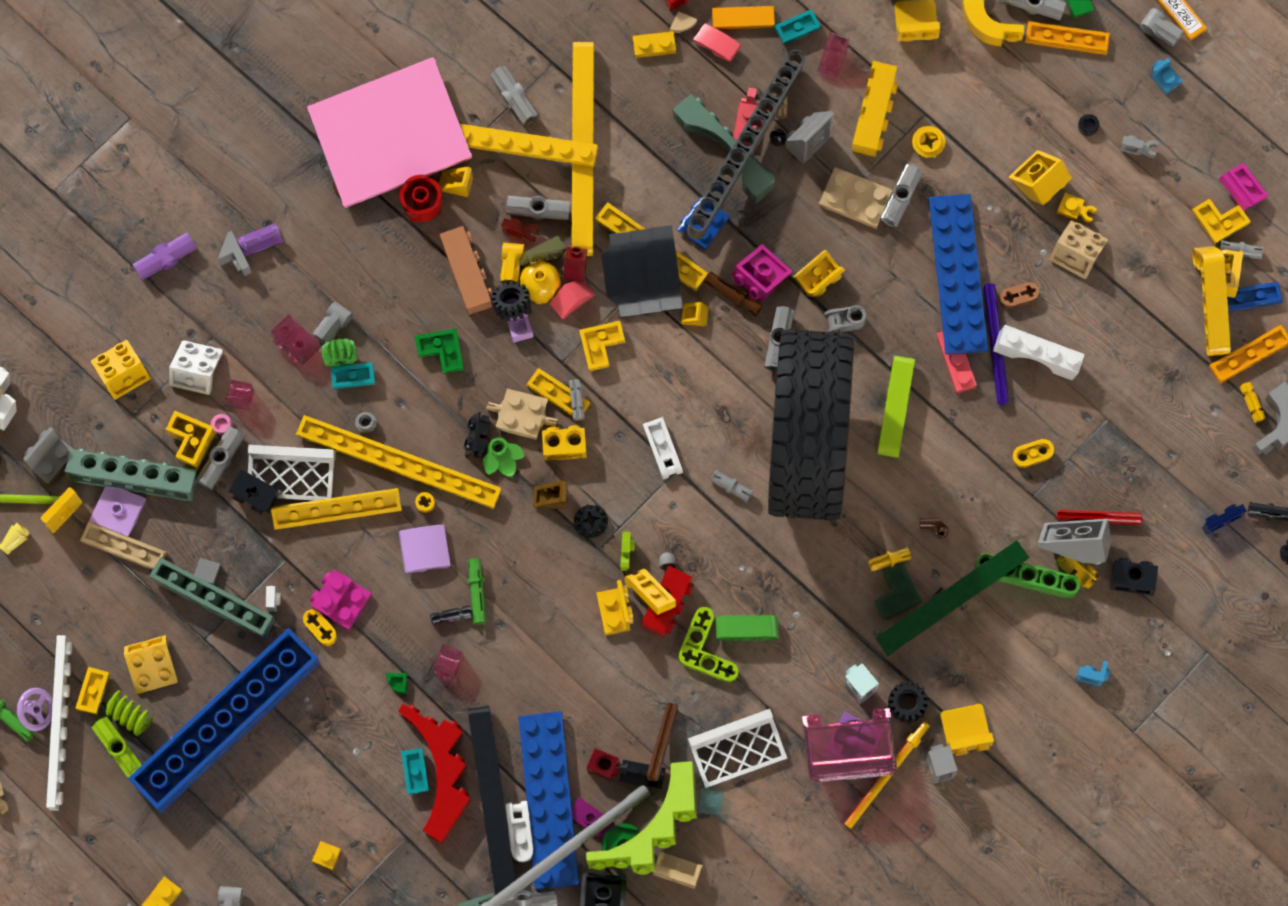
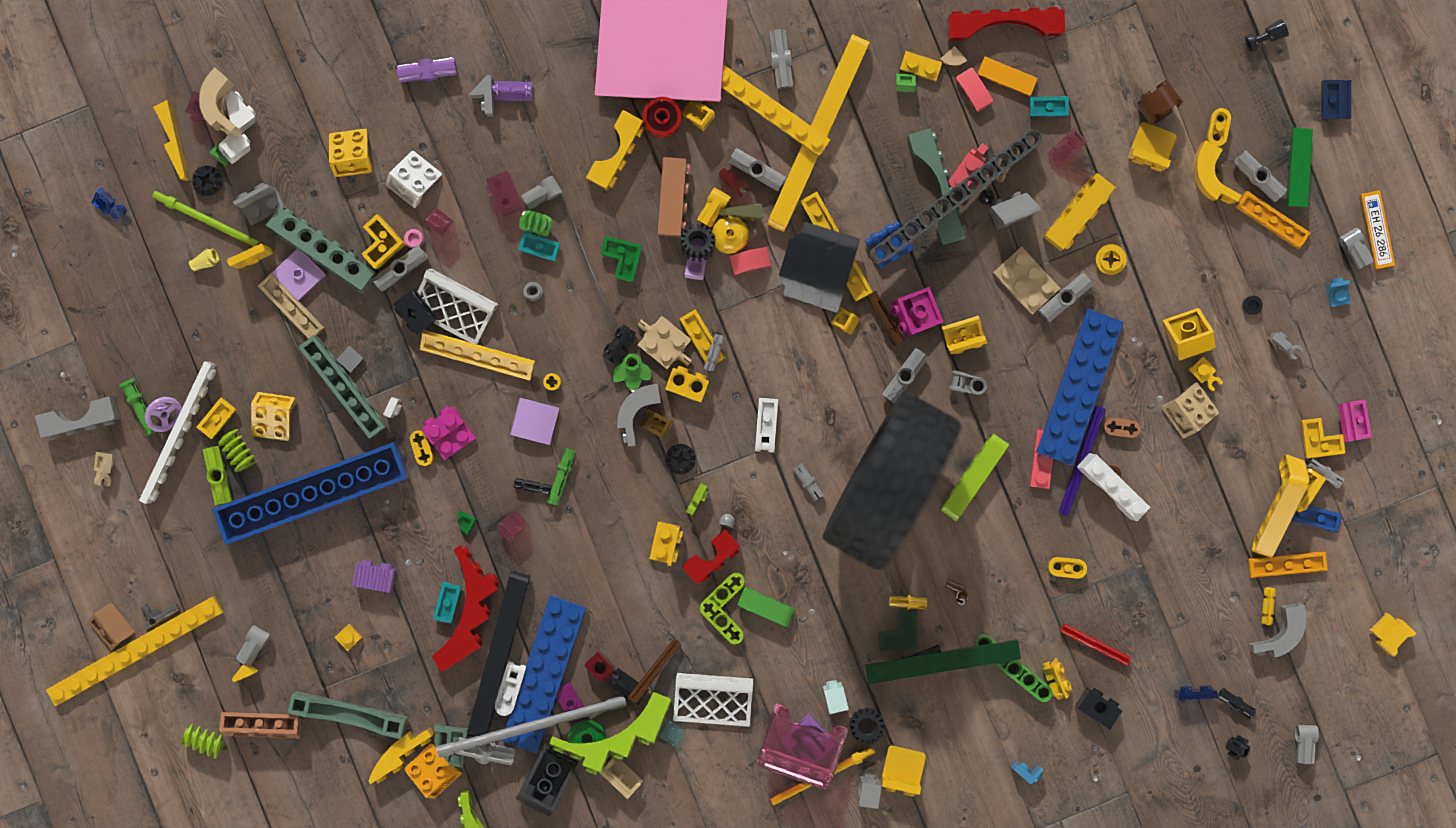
camera: 20 degrees right, 15 degrees up
(326, 778) = (374, 576): none -> medium lavender brick
(386, 276) = (604, 172): none -> yellow arch
(399, 462) = (545, 338): yellow plate -> none
(520, 480) = (633, 403): none -> light grey arch
(575, 264) = (765, 234): dark red brick -> none
(596, 339) = (755, 306): yellow plate -> none
(646, 65) = (905, 82): none -> bright green plate
(650, 591) = (700, 544): yellow plate -> none
(1079, 540) = (1067, 659): light grey slope -> none

